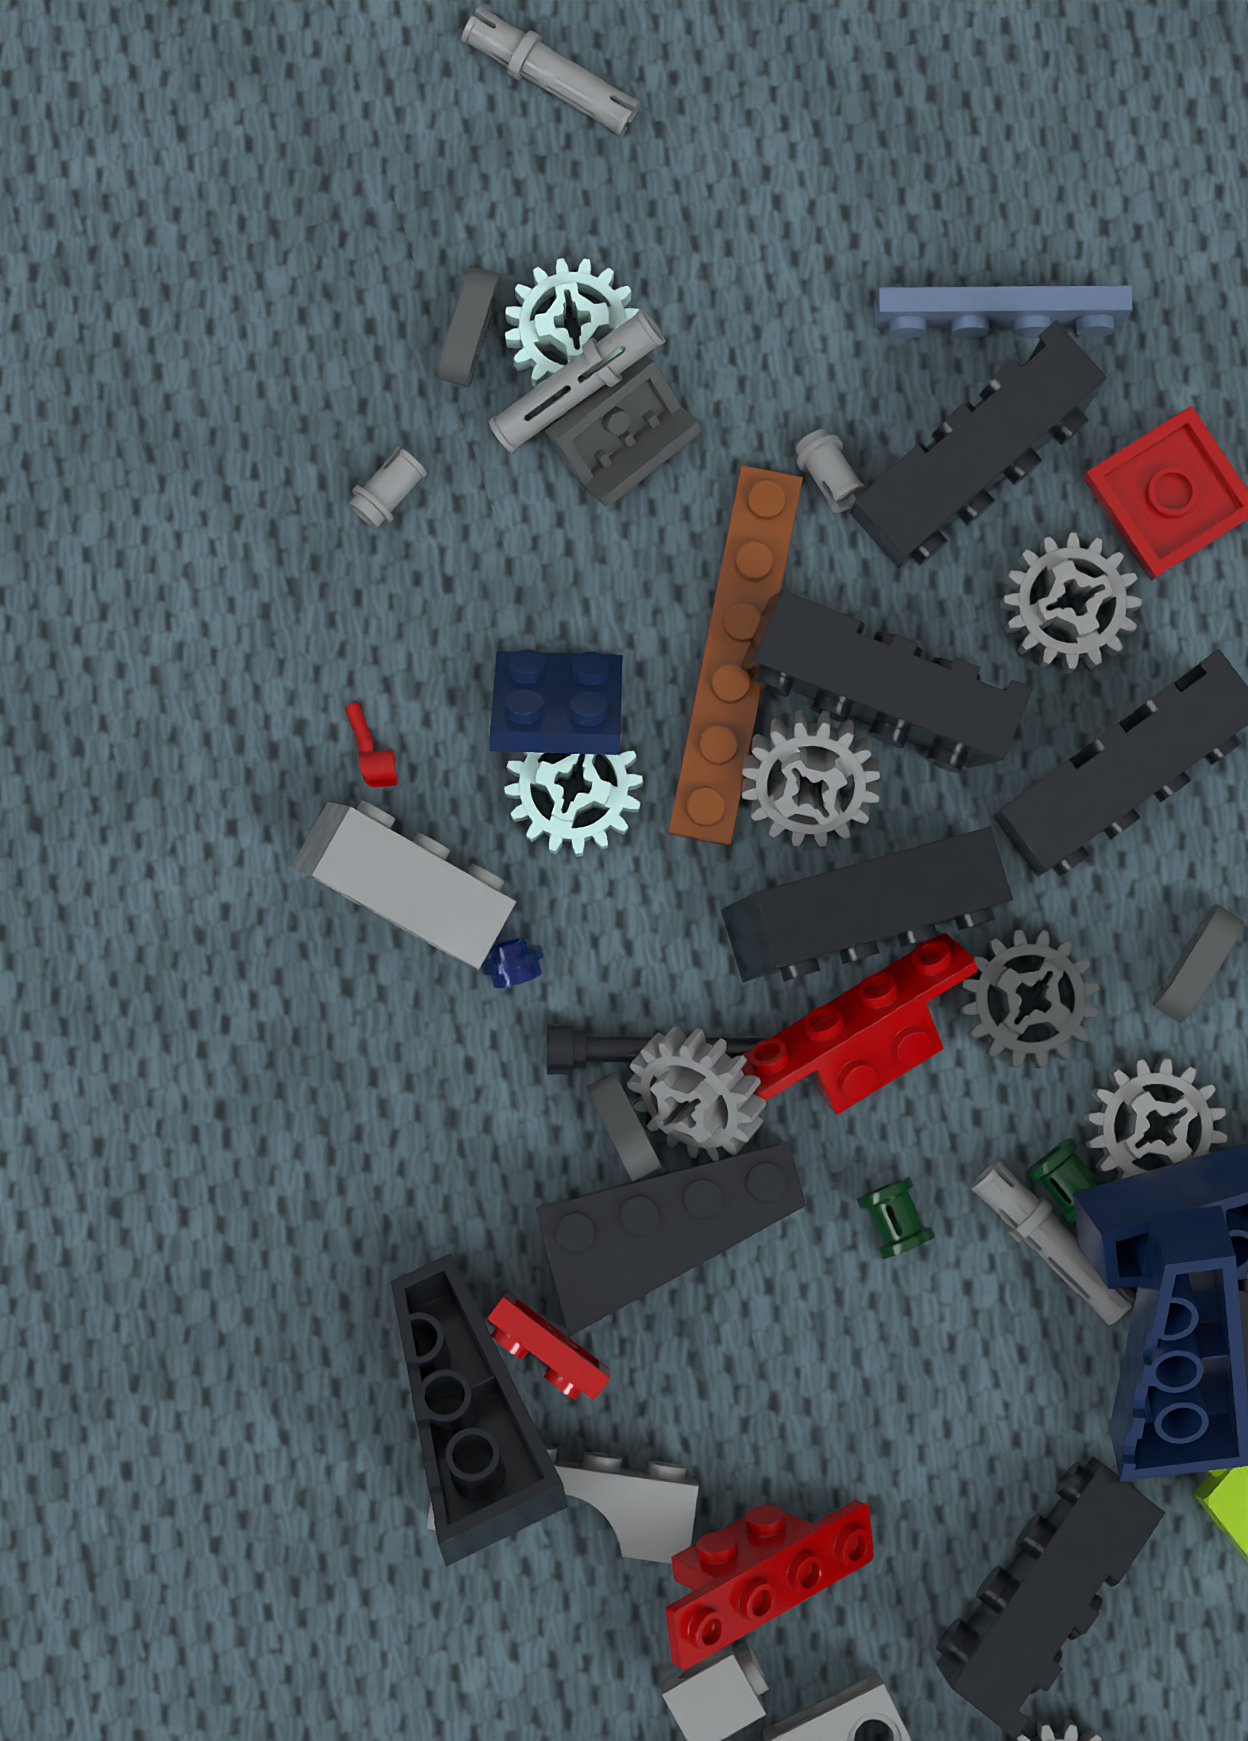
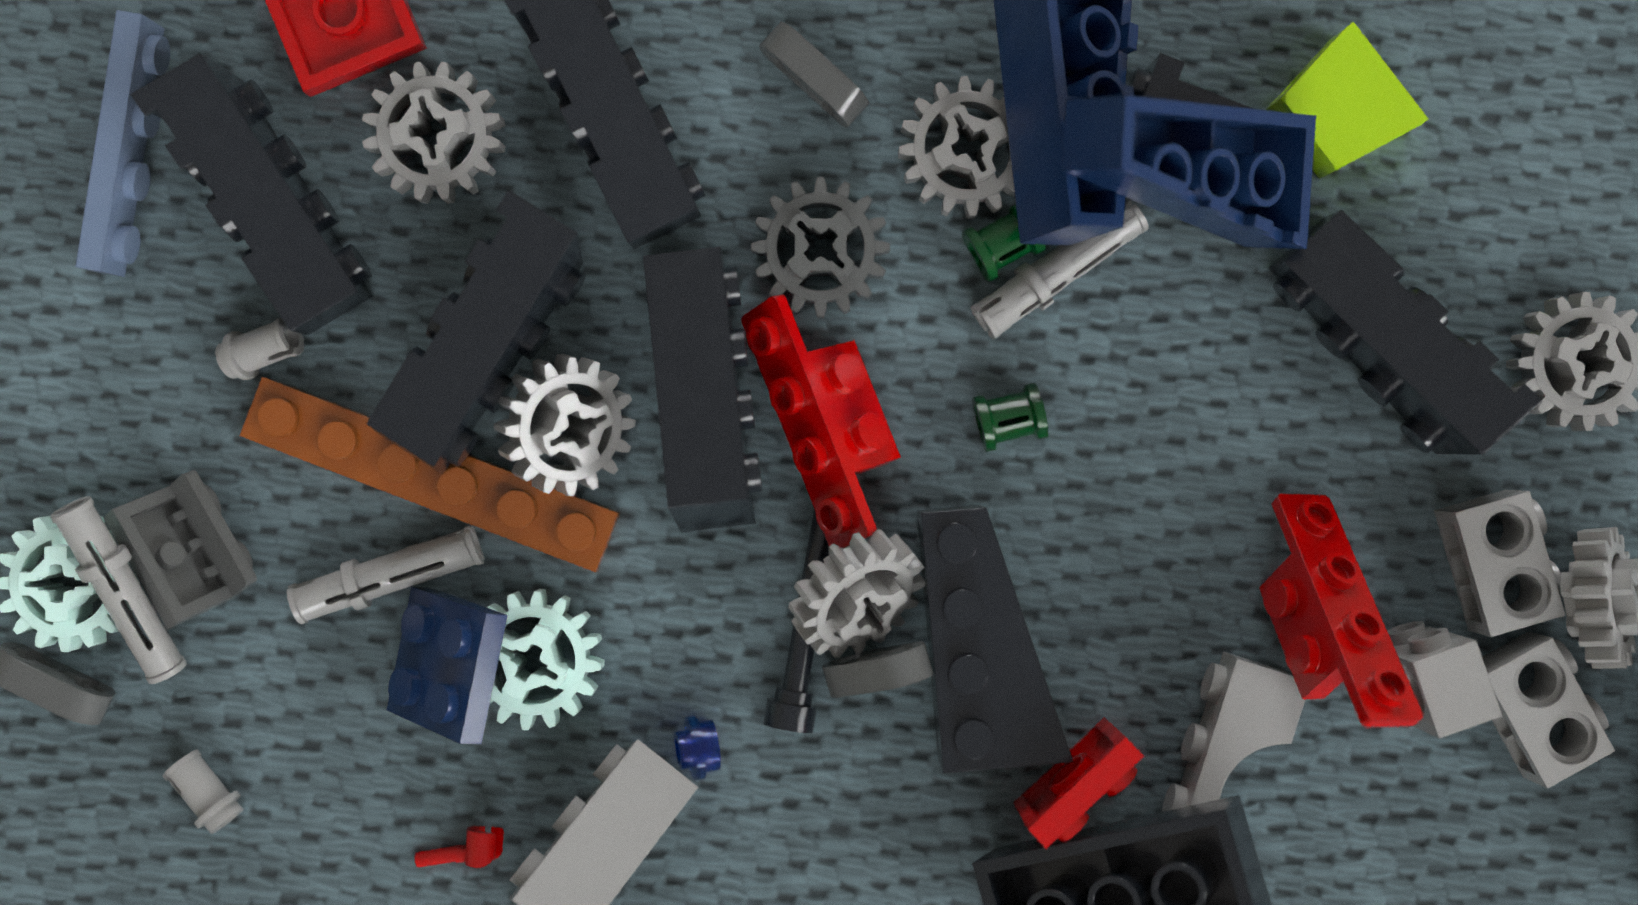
camera: 75 degrees left, 5 degrees up
(630, 628) = (361, 582): none -> light grey pin

